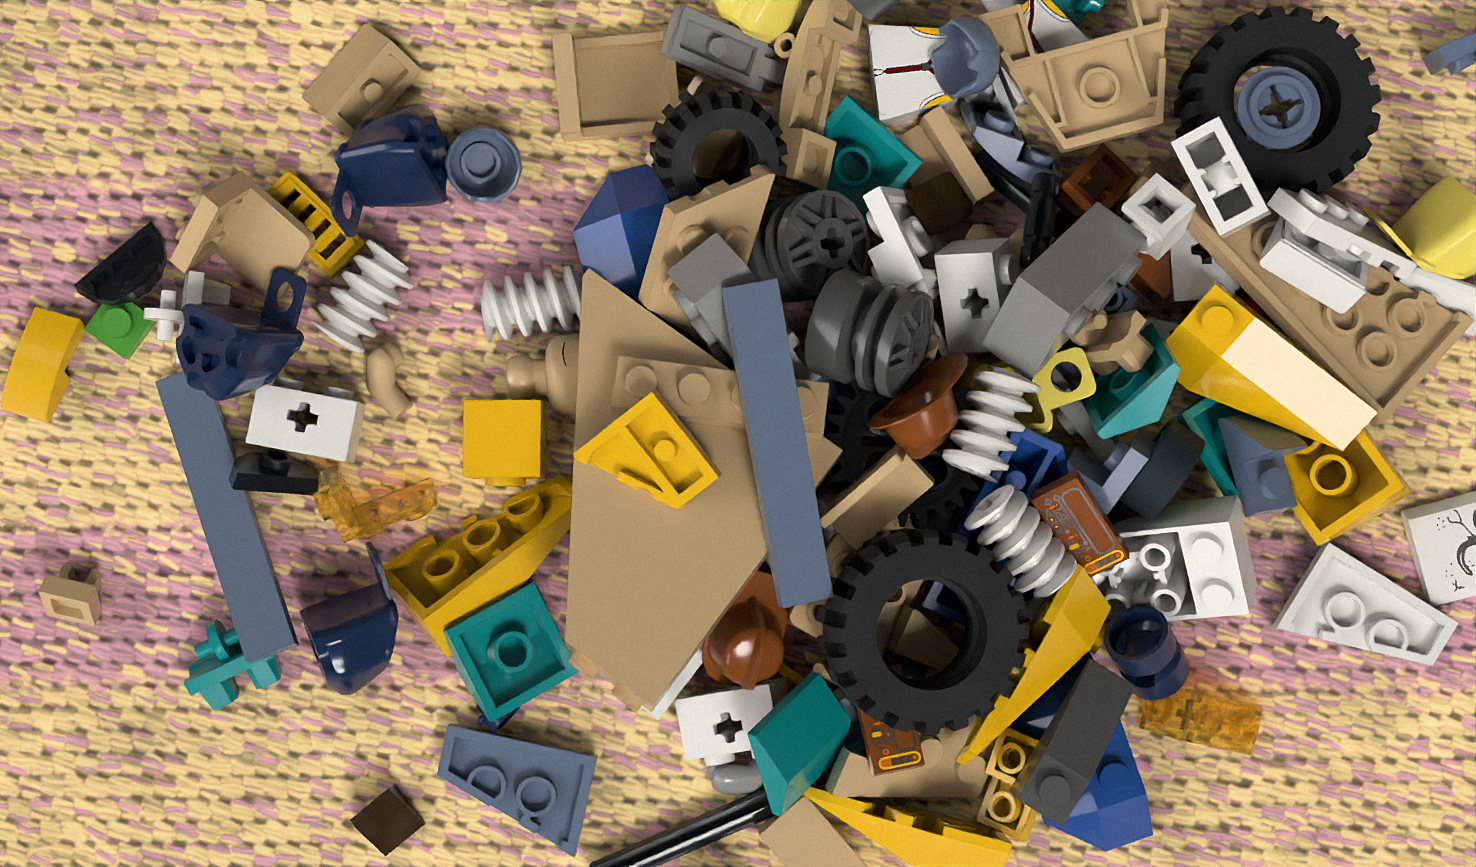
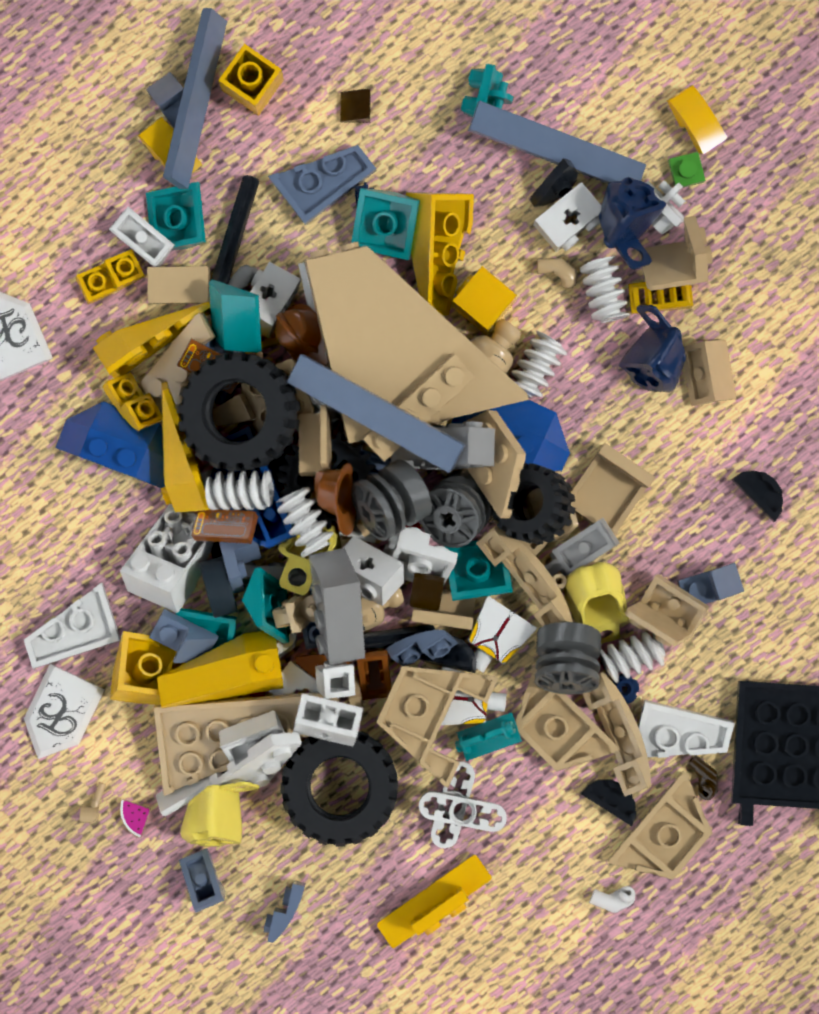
camera: 135 degrees right, 0 degrees up
(72, 599) = (576, 45): tan tile -> none
(127, 271) = (707, 193): black plate -> none
(354, 632) = (453, 160): dark blue piece -> none
(369, 519) = (500, 212): clear yellow bracket -> none
(483, 164) = (621, 396): sand blue hair -> none
(652, 452) = (418, 354): yellow wing -> none
(967, 58) = (482, 656): sand blue hair -> none
(1039, 217) = (380, 628): black axle -> none
(1073, 743) = (130, 439): dark grey slope -> none
(1146, 652) = (141, 511): dark blue wheel -> none
(1204, 720) = (89, 513): clear yellow bracket -> none
(1287, 86) = (344, 791): sand blue gear -> none

